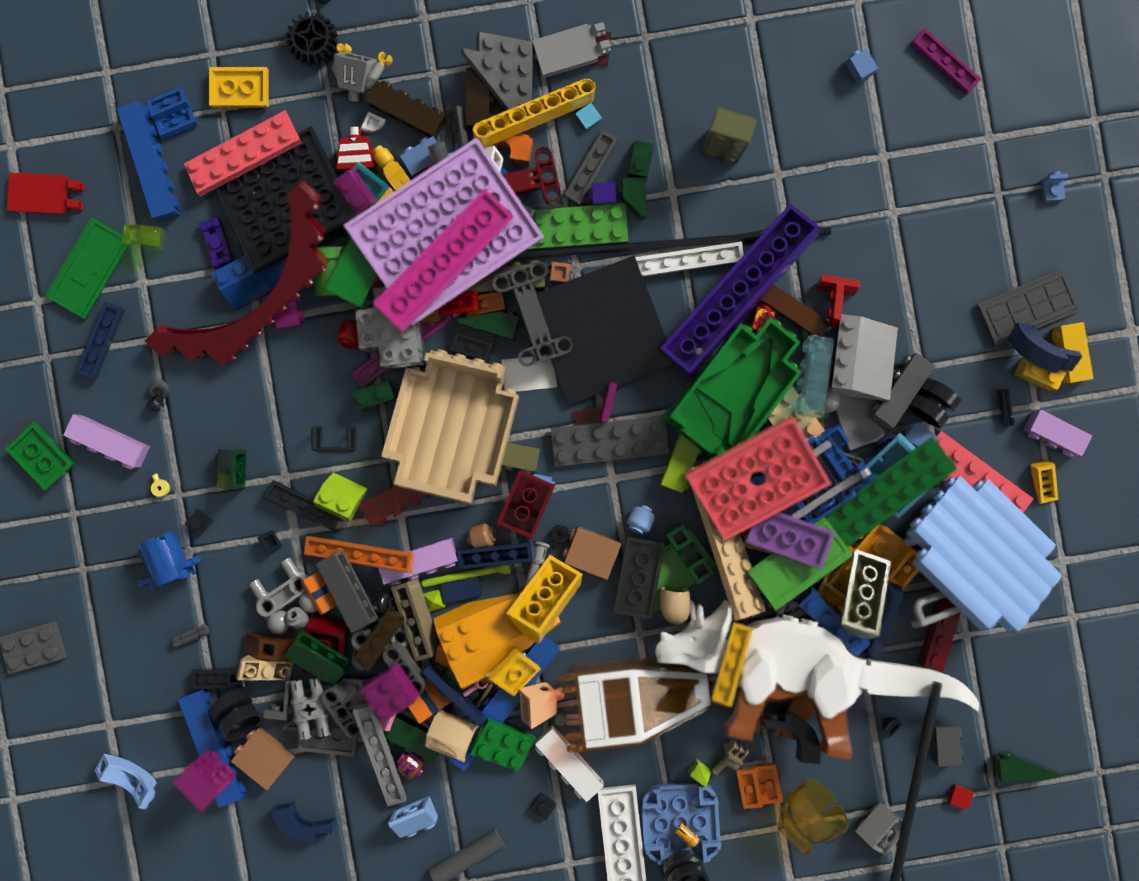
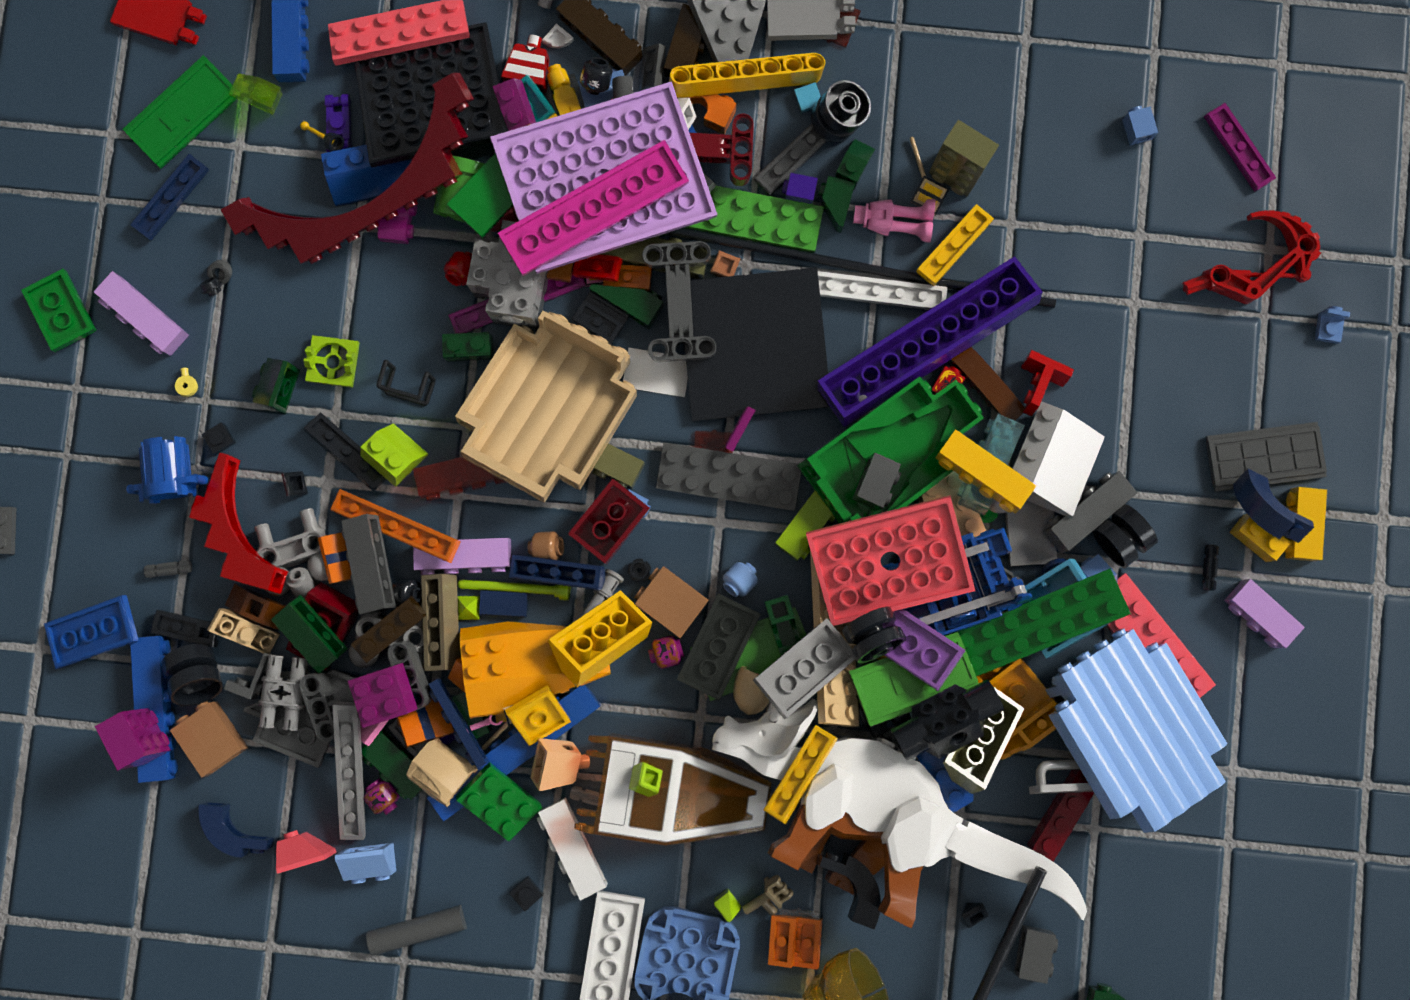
camera: 15 degrees right, 5 degrees down
(129, 776) = (41, 715): light blue arch -> none
(146, 702) = (91, 632): none -> blue tile
(216, 260) = (331, 140): none -> black hinge
(228, 599) = (226, 536): none -> red arch
(284, 434) = (317, 344): none -> lime piece
(360, 824) = (300, 850): none -> coral slope
(413, 148) = (596, 75): none -> black head
(599, 592) = (666, 652): none -> head
(612, 699) = (645, 779): none -> lime slope
(618, 121) = (840, 111): none -> black wheel
(673, 196) = (880, 214): none -> bright pink piece
(690, 838) = (690, 978): light orange pin -> none
(707, 168) = (927, 188): none -> piece
(714, 581) = (805, 668): none -> light grey plate
(729, 416) = (877, 482): none -> dark grey brick
(738, 205) = (955, 245): none -> yellow plate
(763, 544) = (874, 634): none -> black wheel
(813, 386) = (985, 472): none -> yellow brick
(835, 591) = (947, 720): none -> black brick
(892, 601) = (1007, 765): dark blue brick -> none
(969, 174) = (1237, 283): none -> red piece
(1037, 475) = (1243, 669): yellow slope -> none

